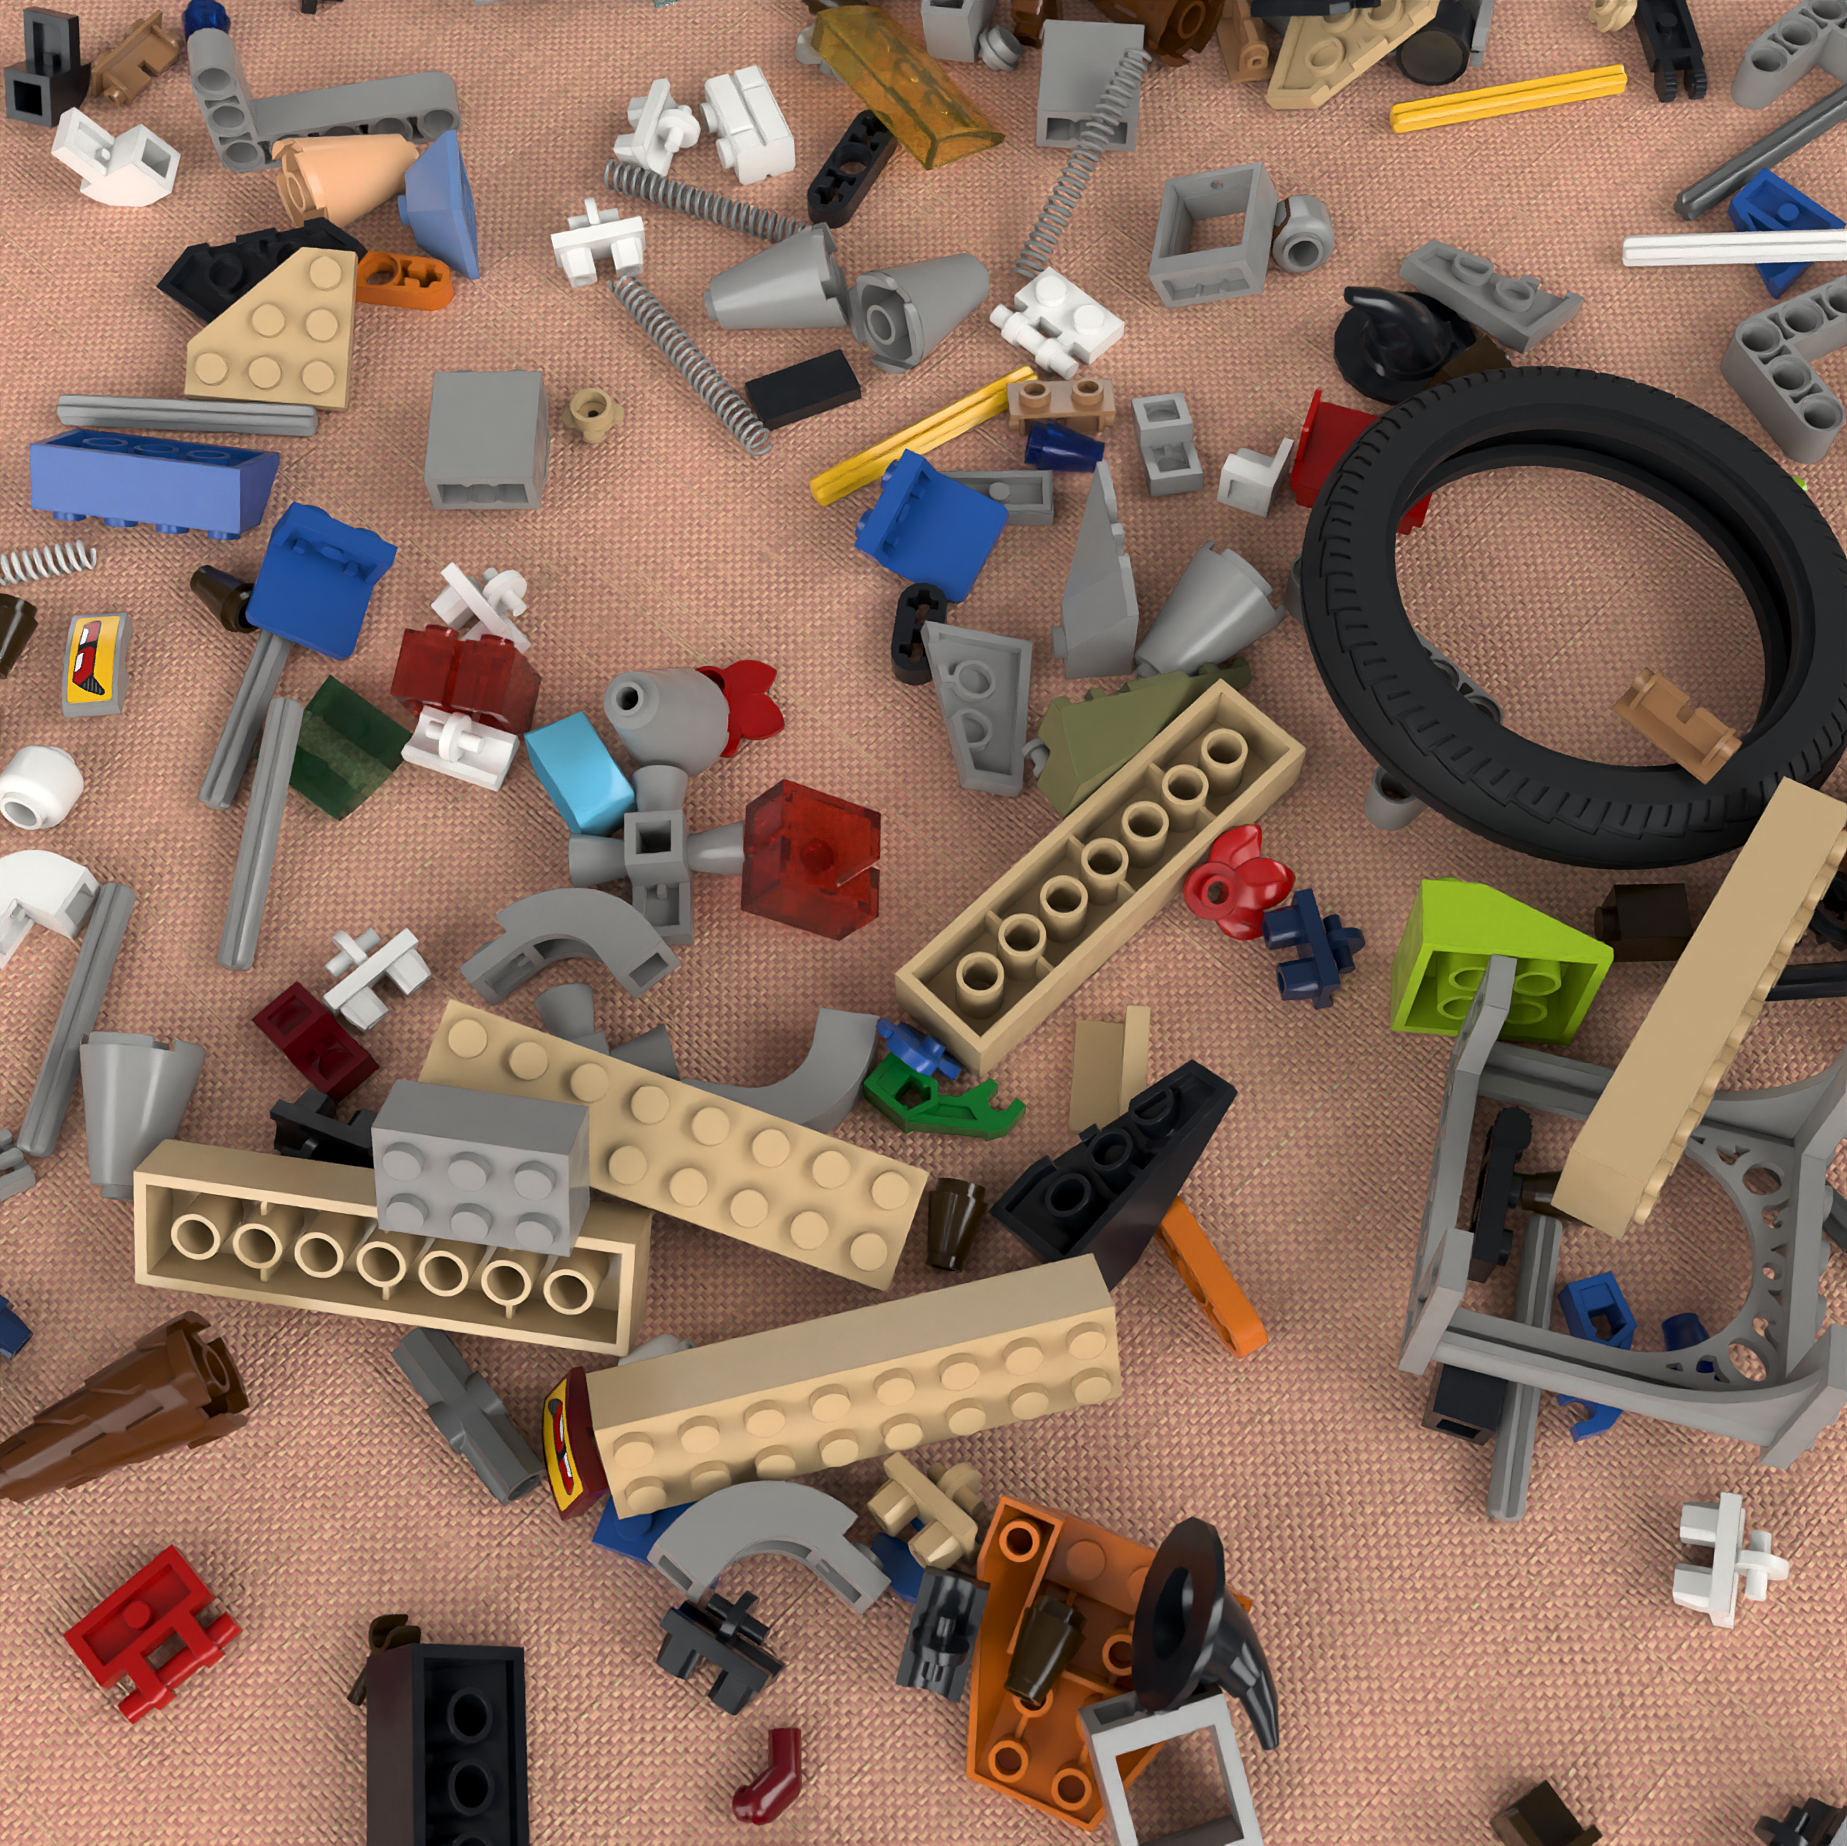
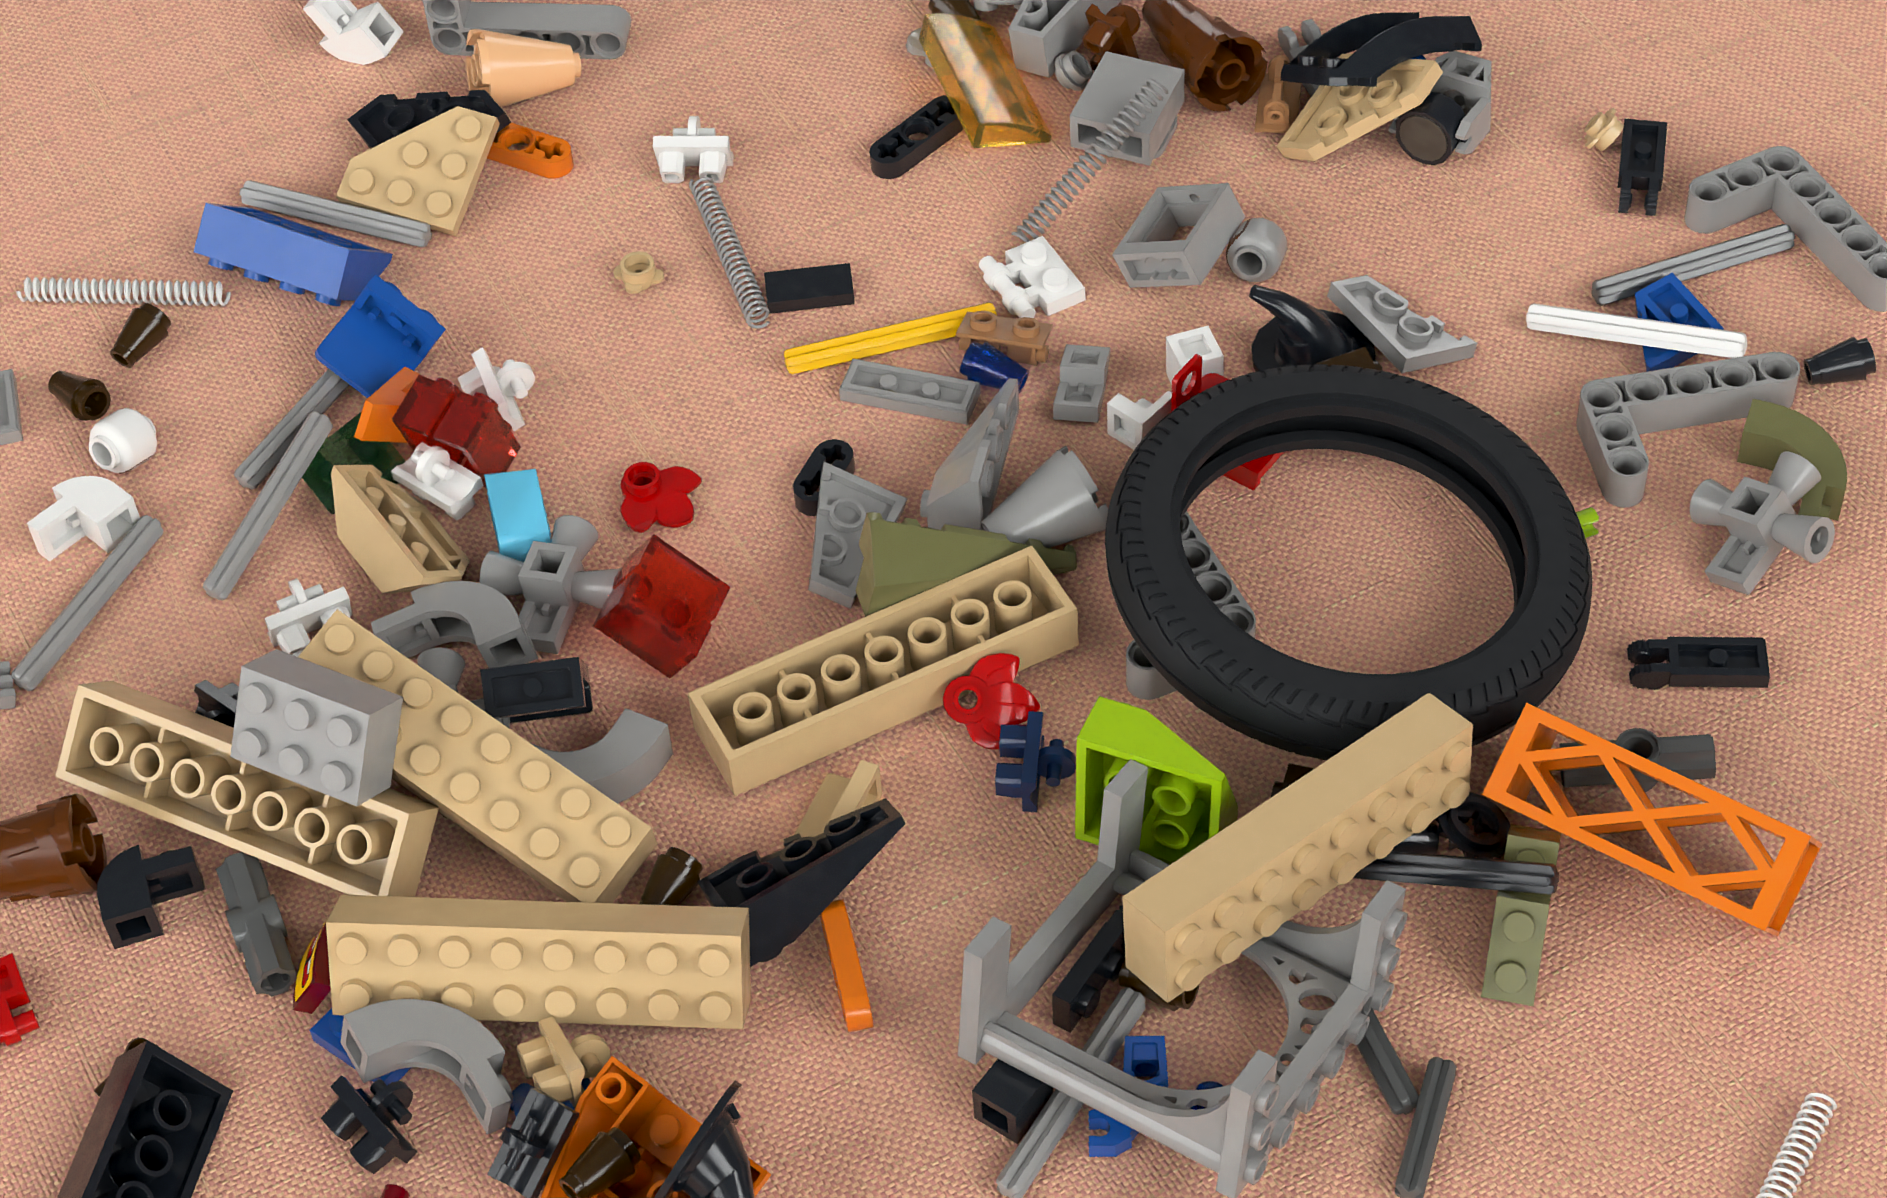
camera: 20 degrees right, 15 degrees down
(94, 665) = (196, 369): slope -> none
(132, 1101) = (105, 648): light grey cone -> none
(224, 596) = (306, 338): dark brown cone -> none
(291, 1406) = (134, 887): none -> black brick
(315, 1043) = (241, 643): dark red slope -> none
(369, 670) = (380, 407): none -> orange slope
(438, 838) = (392, 532): none -> tan wedge
(442, 206) = (584, 102): medium blue slope -> none
(487, 440) = (546, 271): light grey brick -> none
(659, 130) = (774, 79): white hips -> none
(669, 717) = (595, 483): light grey cone -> none
(699, 198) = (830, 173): light grey piece -> none
(712, 1016) = (537, 690): none -> black panel
(748, 125) = (845, 89): white brick -> none
(783, 286) = (823, 208): light grey cone -> none
(914, 307) = (919, 241): light grey cone -> none
(918, 1050) = (691, 757): blue piece -> none
(930, 527) = (857, 398): blue bracket -> none
(941, 1114) = (714, 816): green piece -> none
(1286, 392) = (1185, 345): none -> white panel
(1507, 98) = (1484, 184): yellow axle -> none
(1688, 736) = (1359, 639): medium nougat hinge -> none

